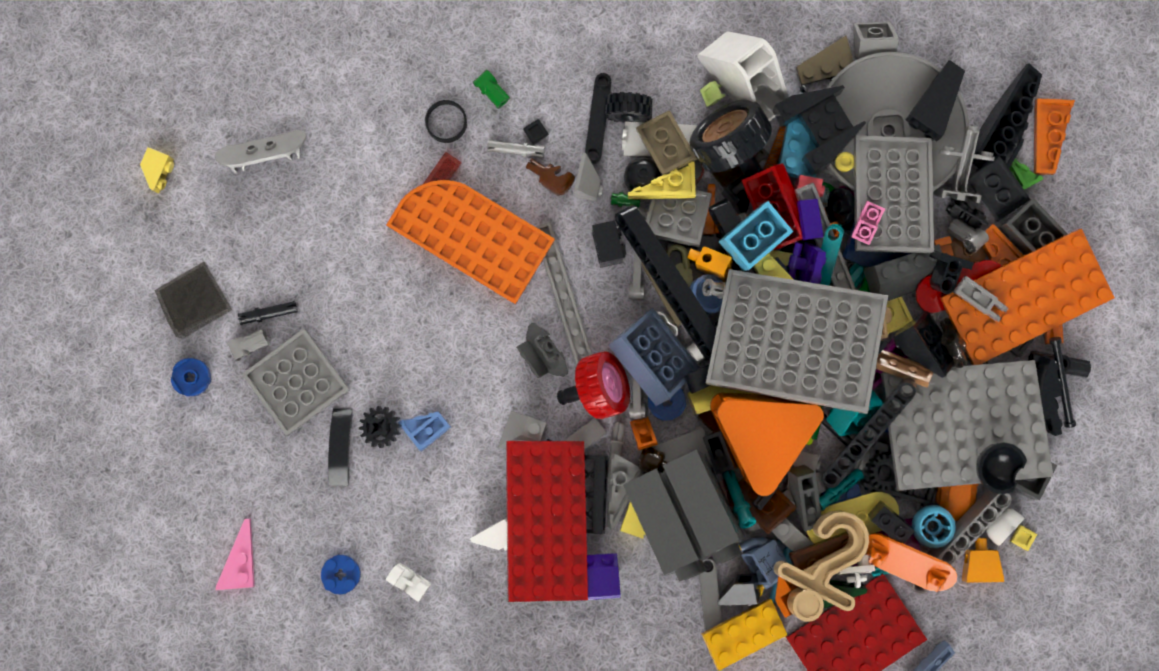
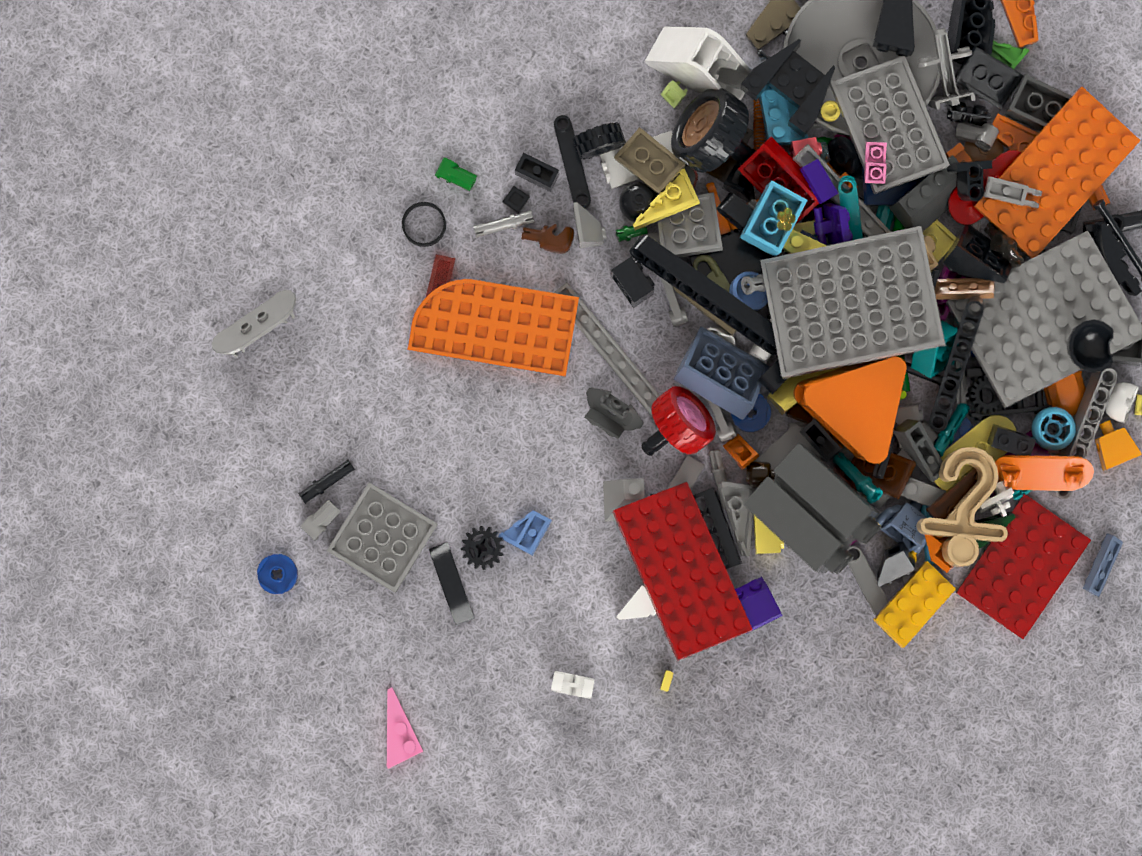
camera: 20 degrees left, 0 degrees up
(155, 169) = (157, 381): light yellow slope -> none
(192, 301) = (247, 498): clear smoke slope -> none
(348, 566) = (498, 716): blue plate -> none
(494, 612) = (666, 680): none -> light yellow tile
(563, 114) = (537, 172): none -> black brick
(717, 266) = (748, 260): light orange torso -> none
(767, 241) = (786, 219): none -> clear yellow plant

